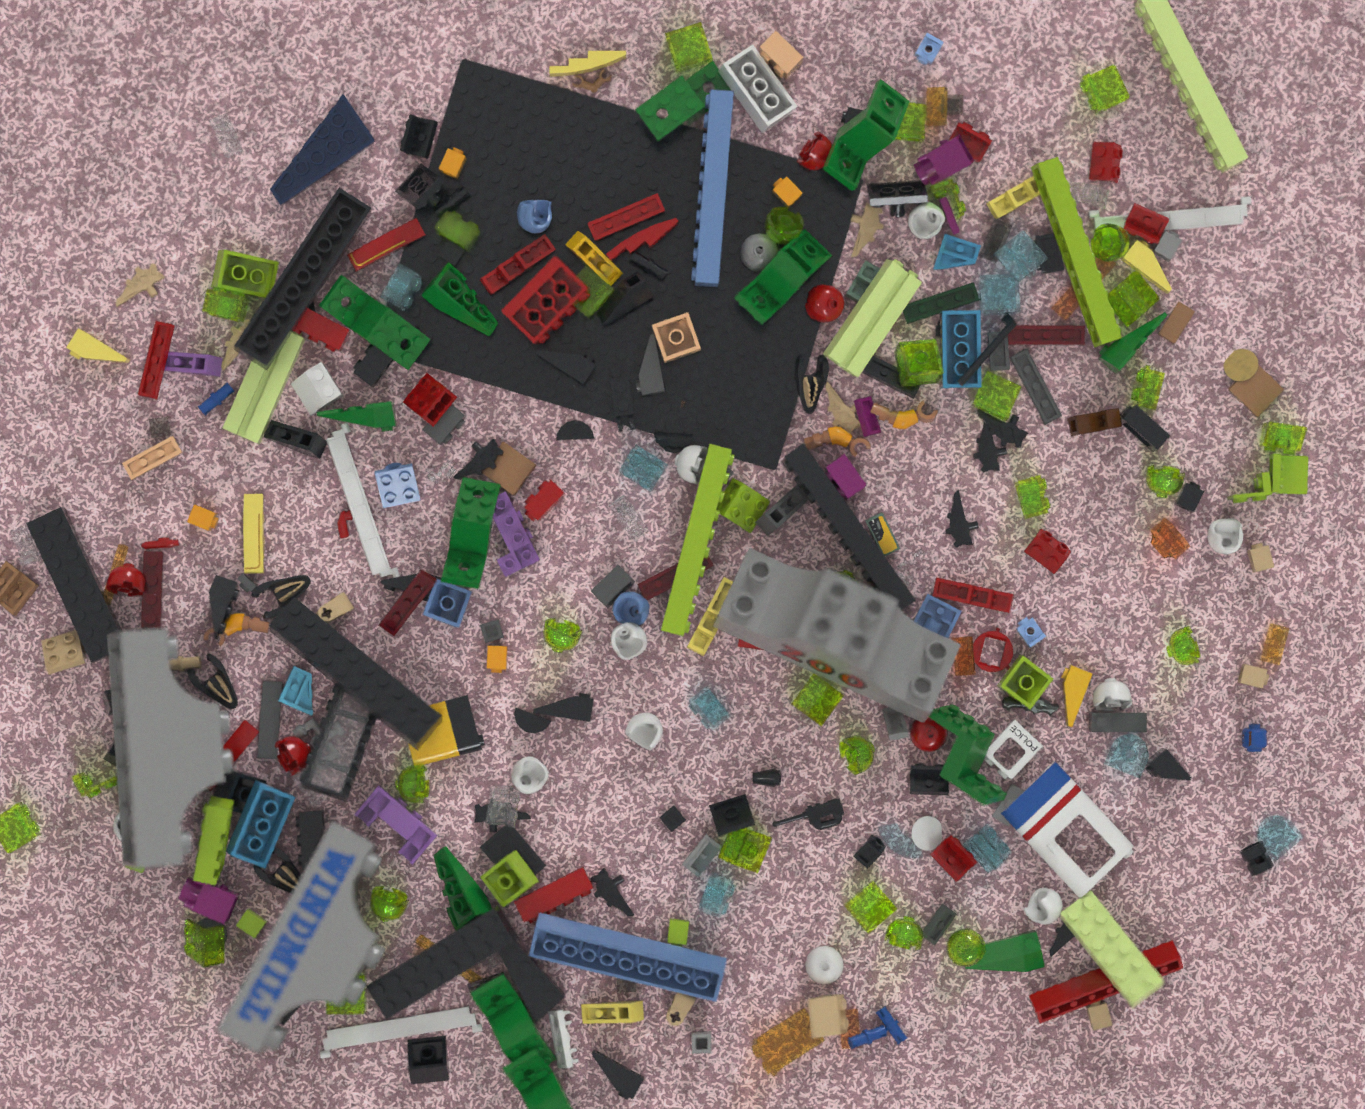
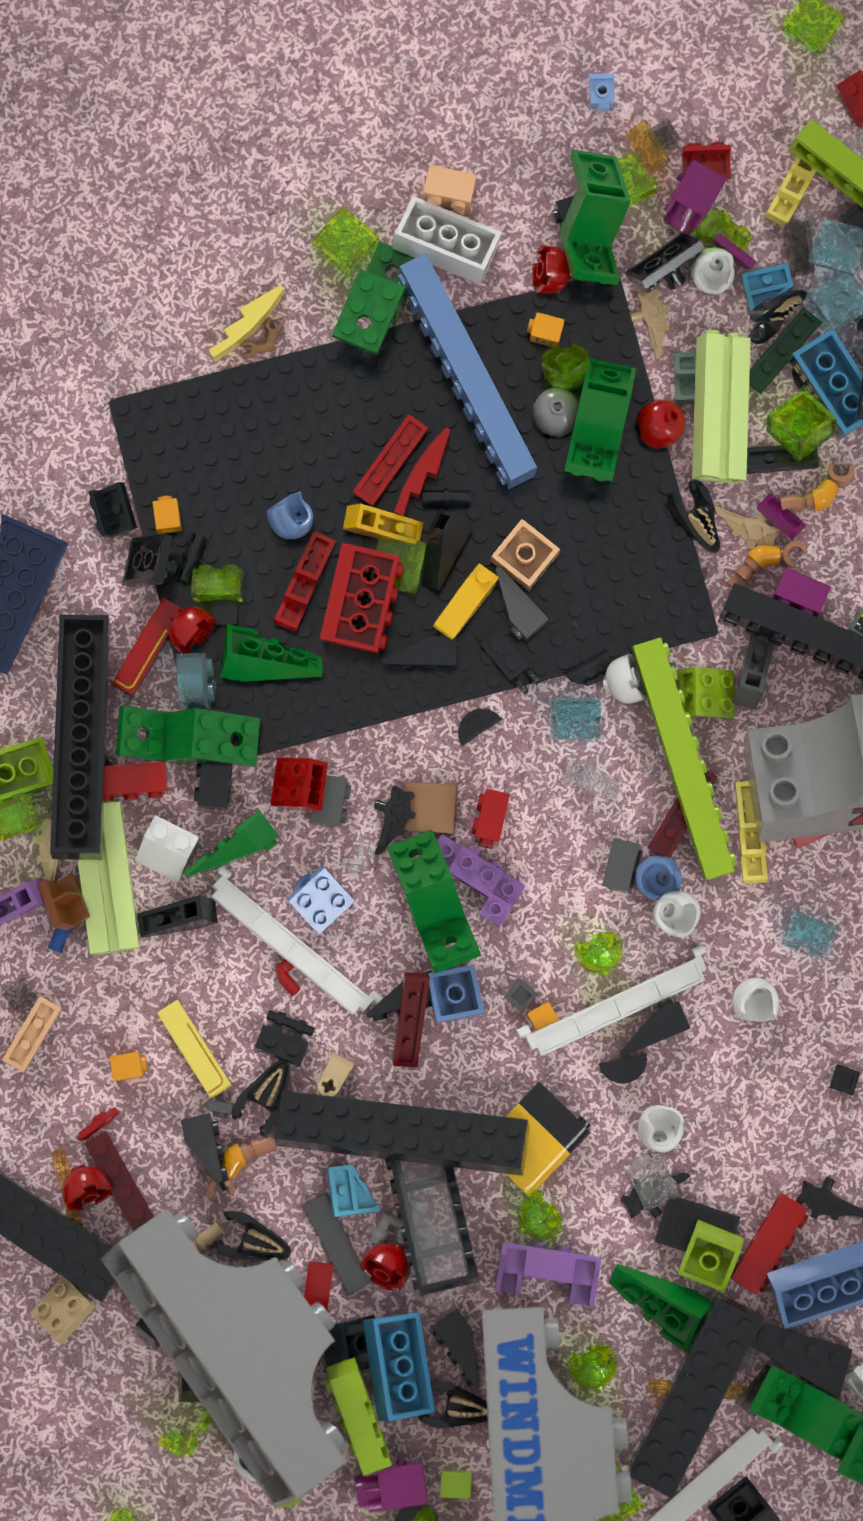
camera: 30 degrees left, 5 degrees down
(225, 382) = (64, 902): none -> dark orange panel
(312, 565) = (281, 1045): none -> black plate
(420, 249) = (190, 627): none -> red cylinder
(551, 677) = (617, 1006): none -> white piece
(616, 345) = (466, 601): none -> yellow slope
(948, 274) = (773, 313): none -> black animal

